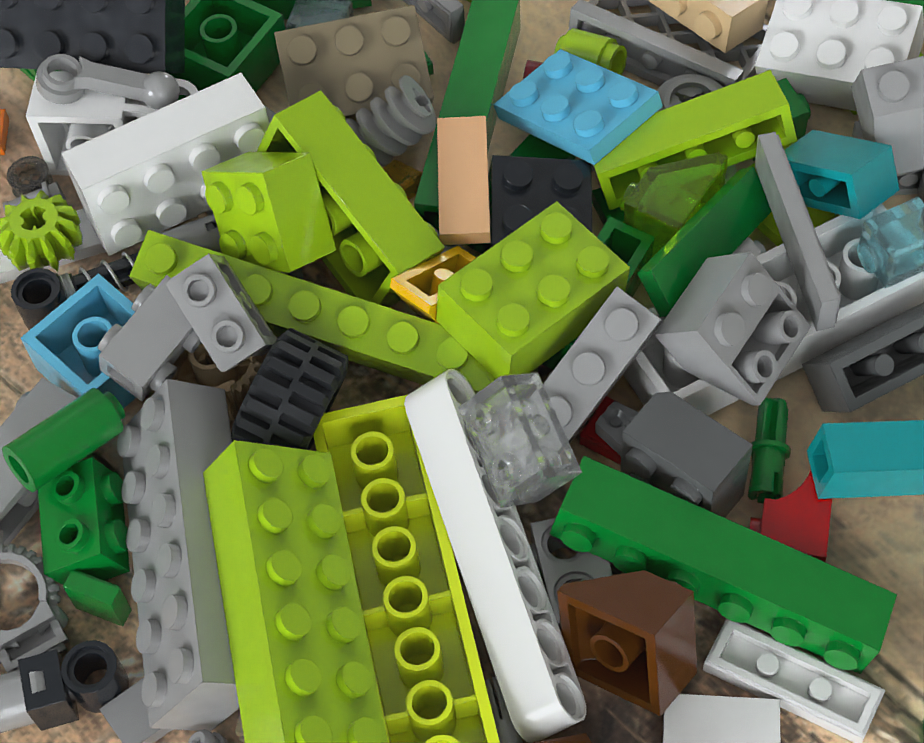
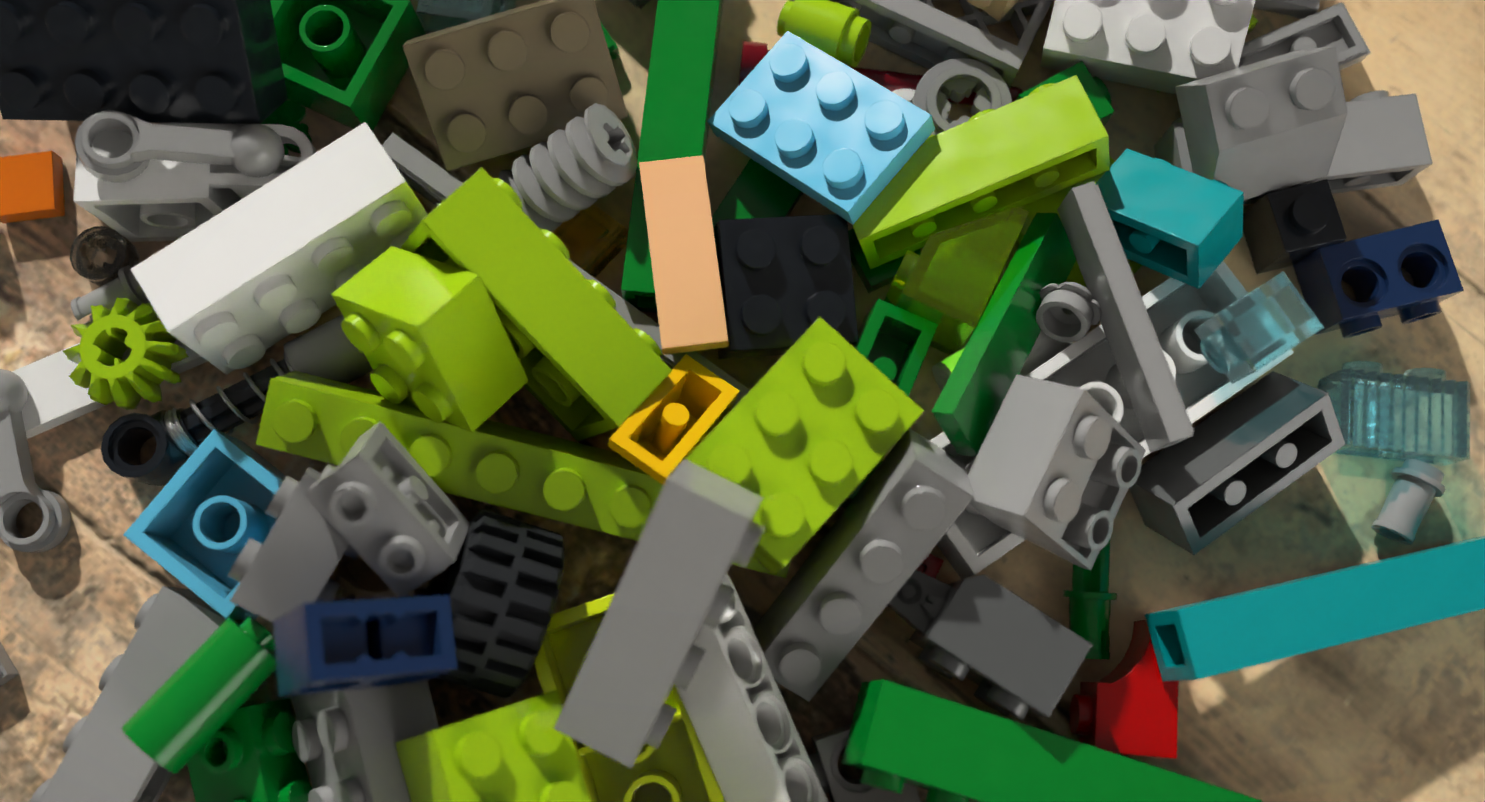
camera: 15 degrees left, 20 degrees up
(193, 383) = (363, 644): none -> dark blue brick
(413, 383) = (658, 611): none -> light grey brick
(519, 439) = (803, 677): clear brick -> none
(748, 238) = (1067, 311): none -> light grey plate

